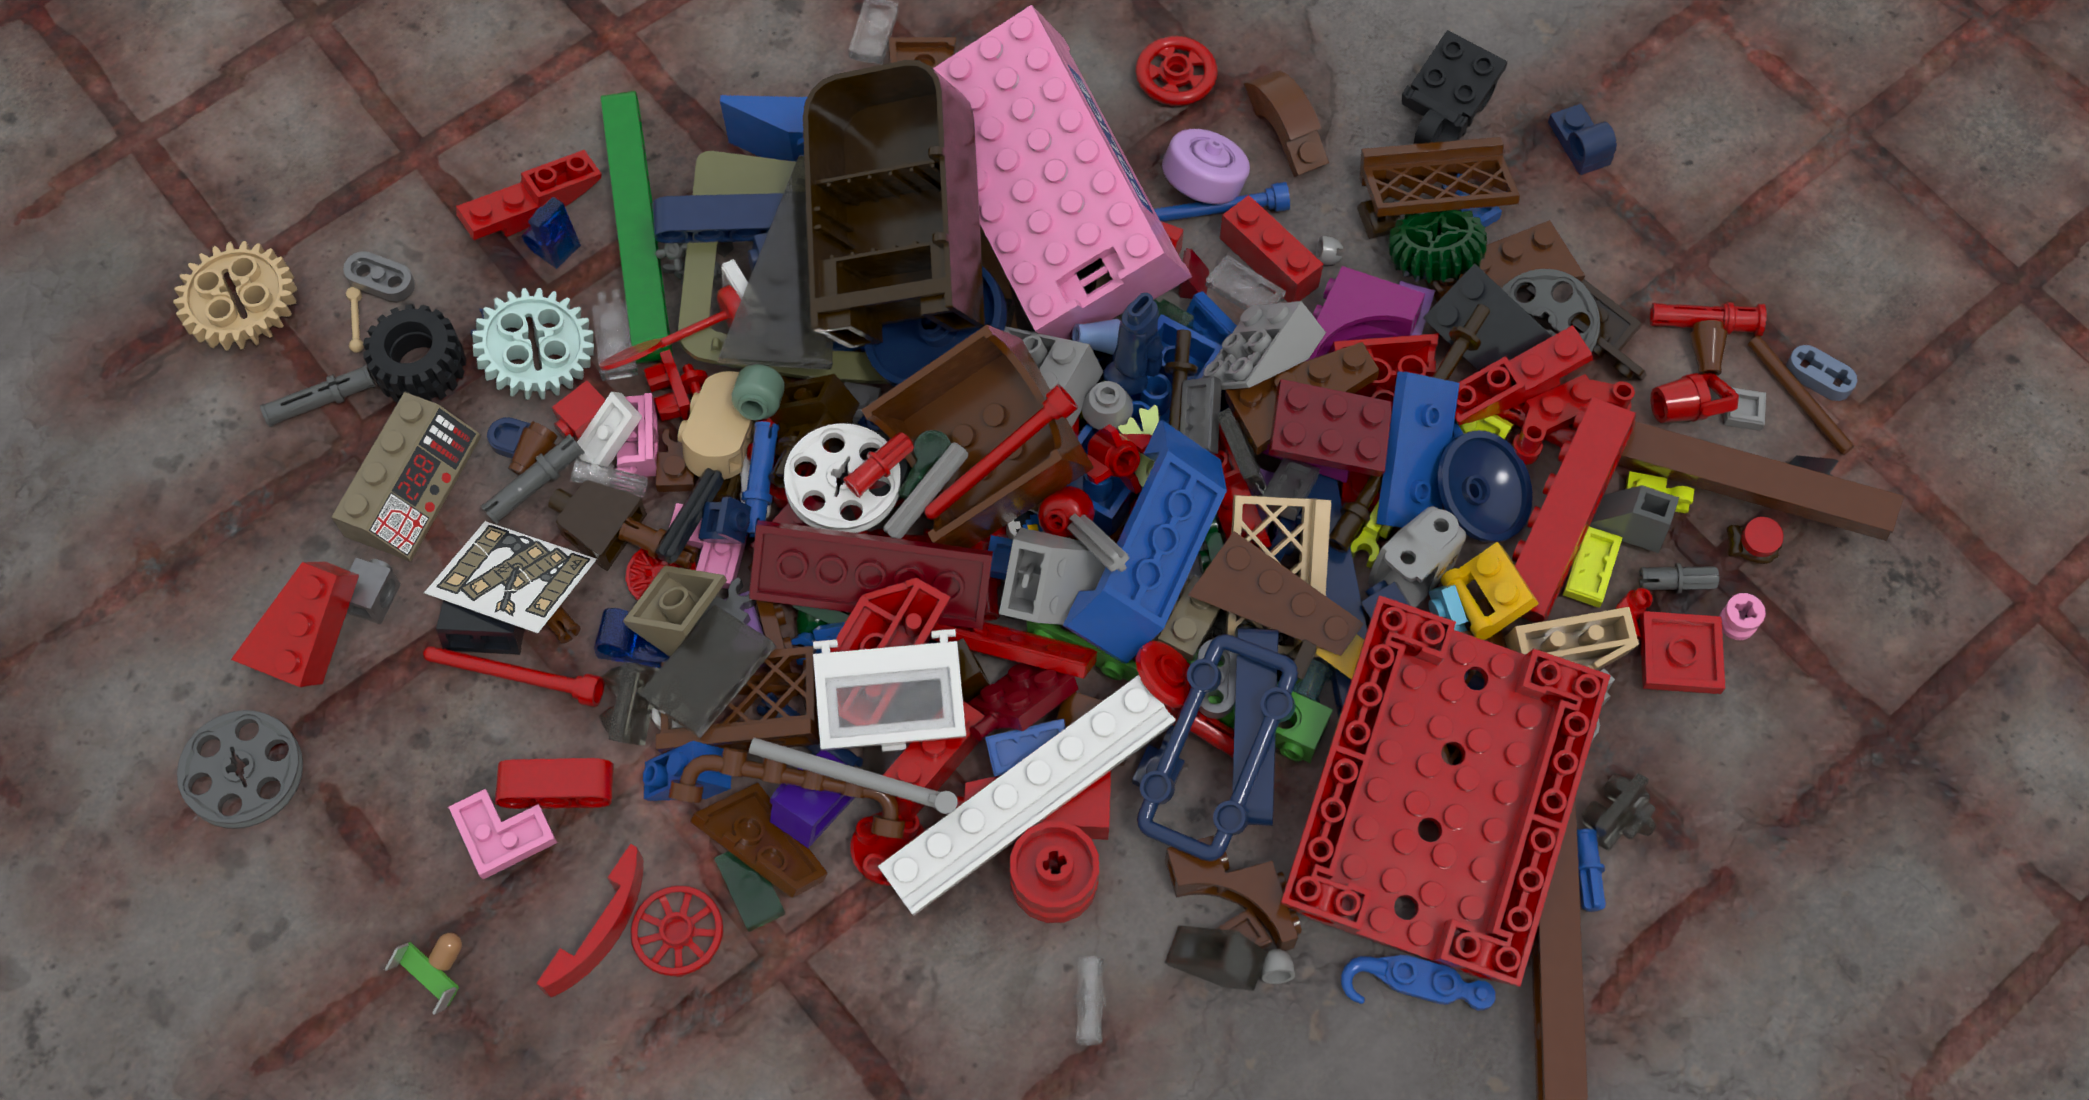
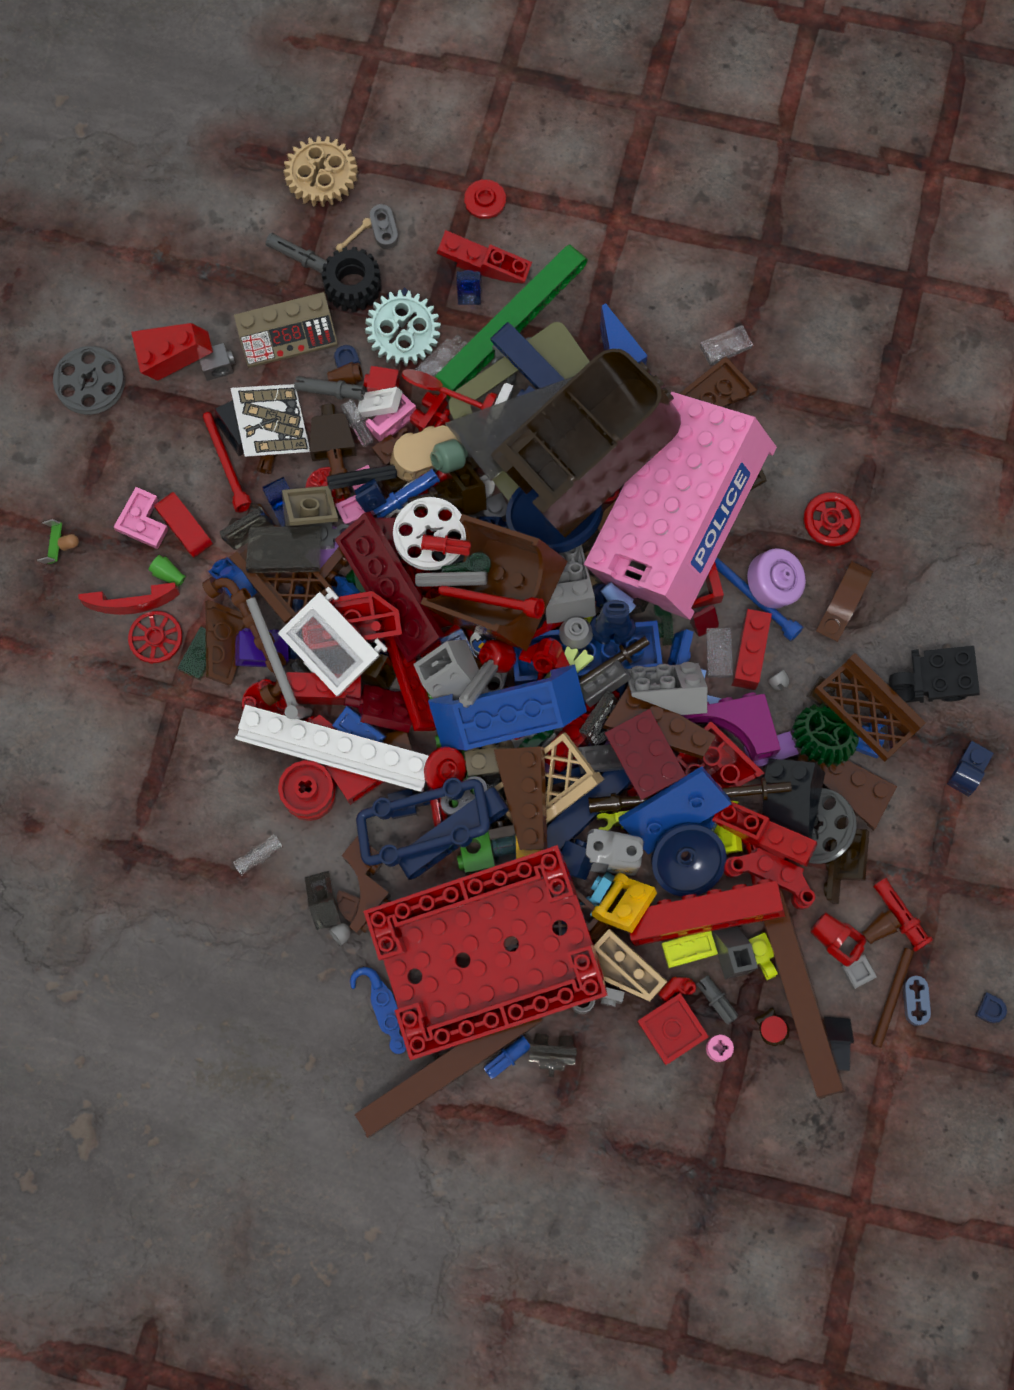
camera: 55 degrees right, 10 degrees up
(452, 147) = (485, 199): none -> red wheel
(599, 849) = (165, 570): none -> bright green cone
(1881, 306) = (991, 1009): none -> dark blue tile

